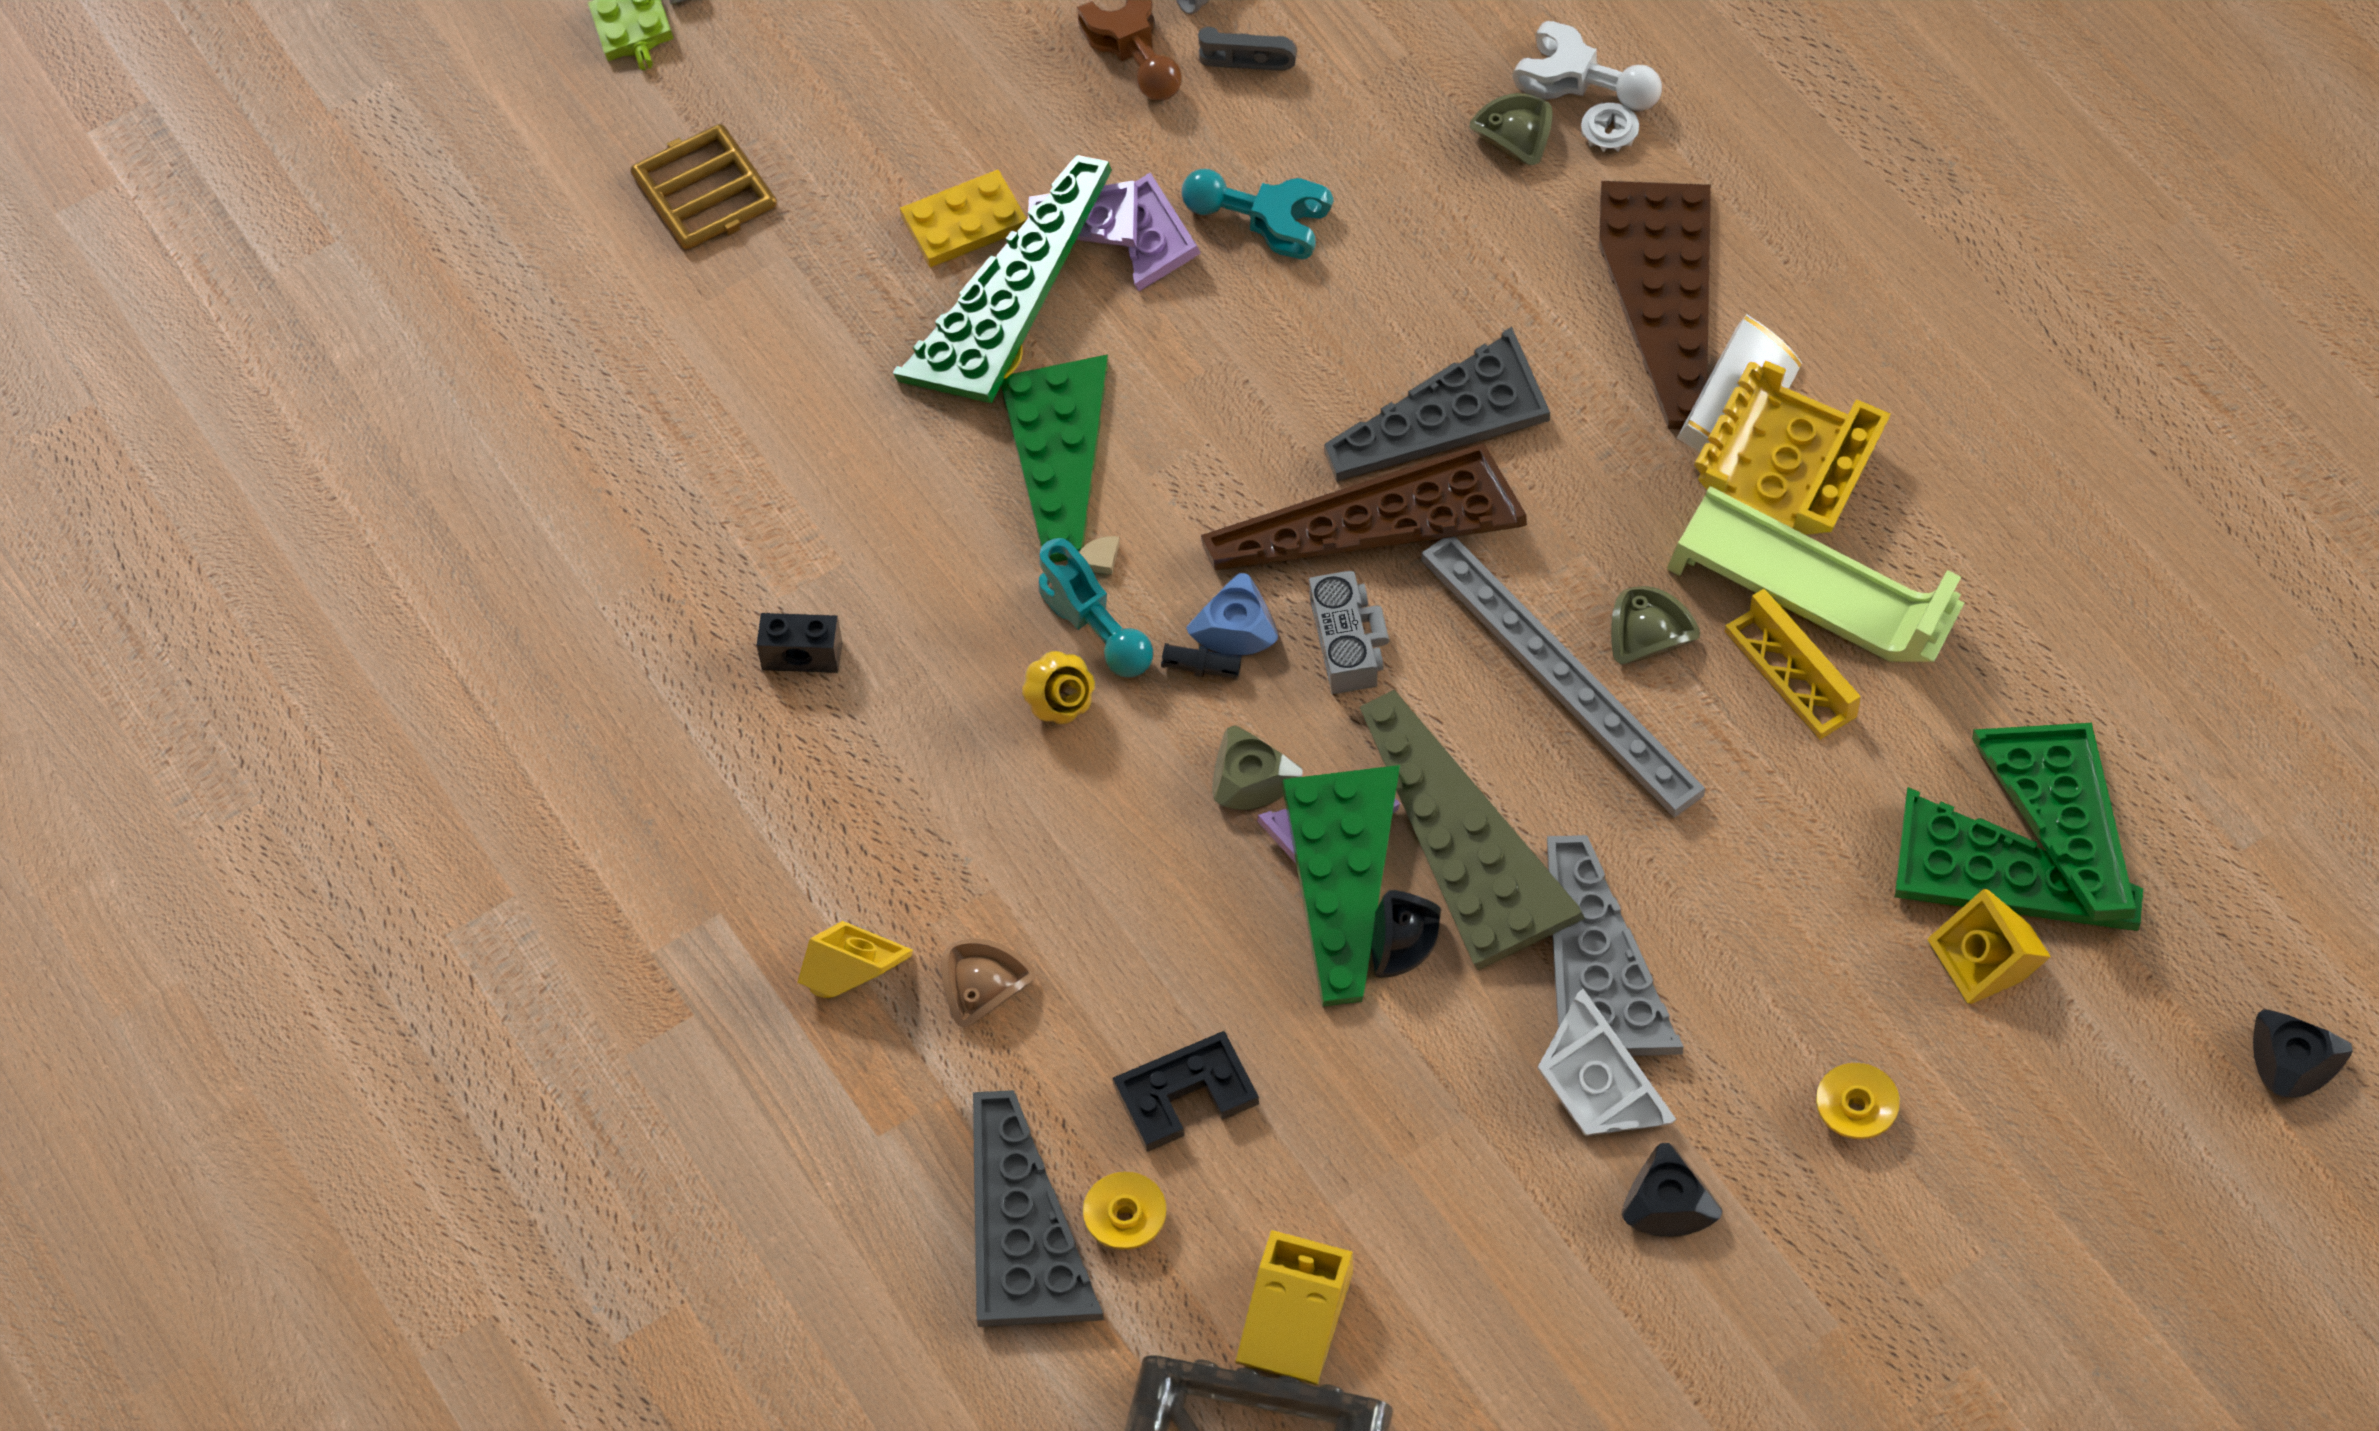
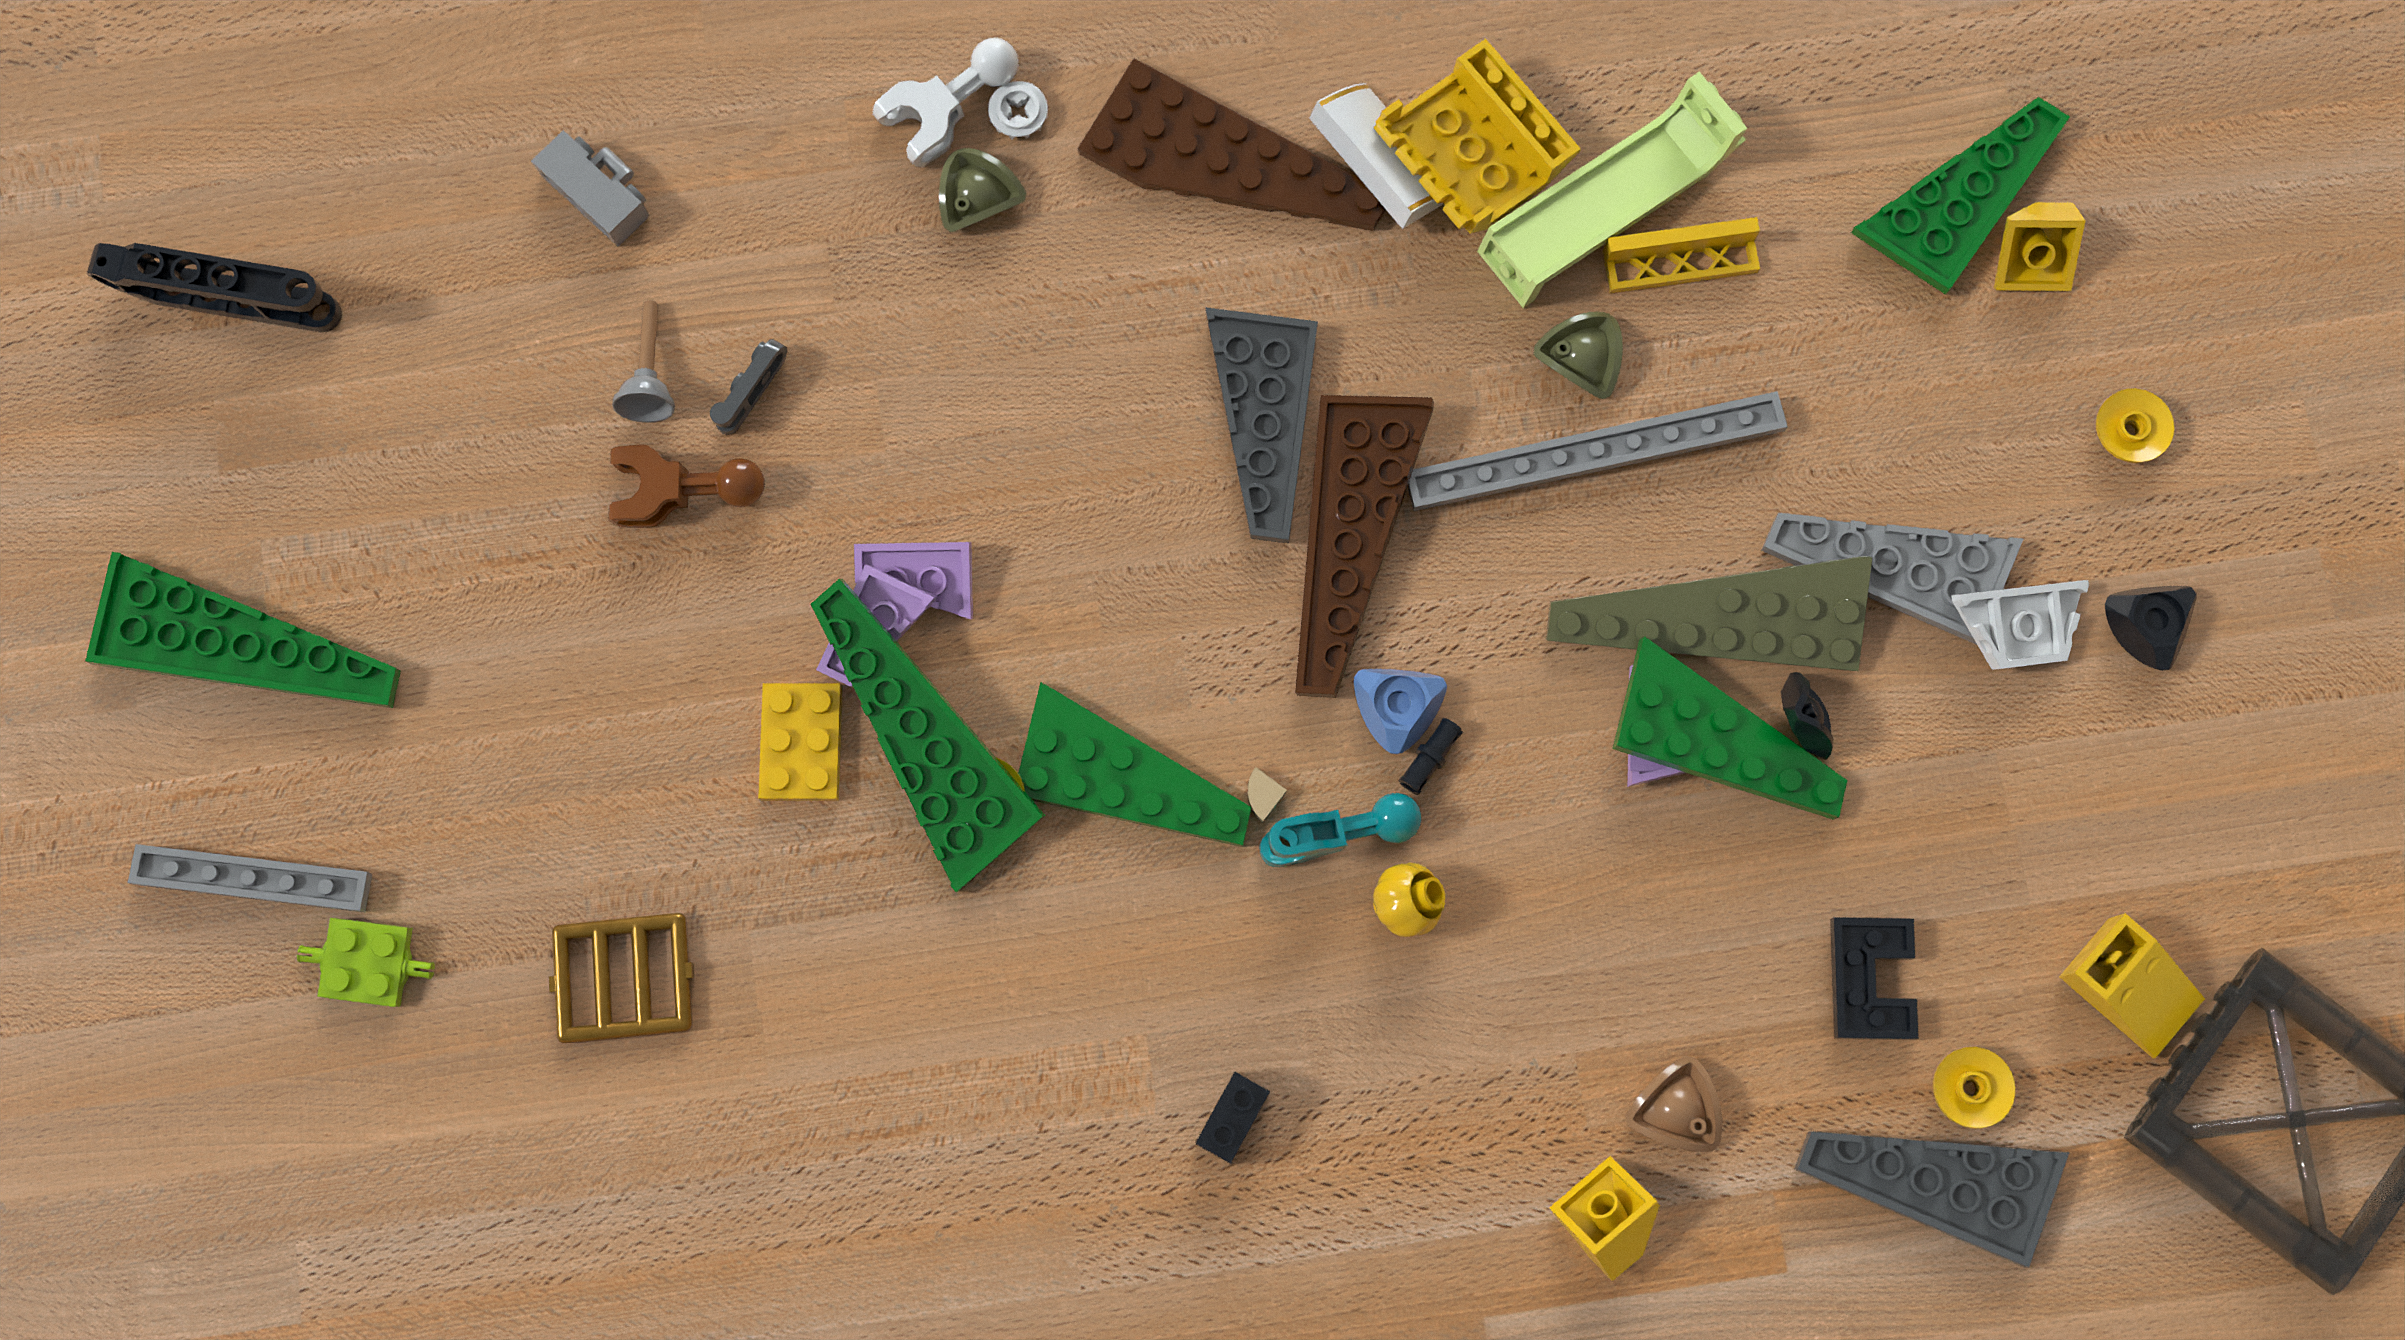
camera: 65 degrees left, 20 degrees up
(1249, 771) = (1568, 768): olive hat -> none
(1270, 212) = (953, 456): teal piece -> none
(1338, 618) = (1463, 618): light grey piece -> none
(2064, 797) = (1919, 109): green wing -> none
(2296, 1055) = (2236, 67): black hat -> none

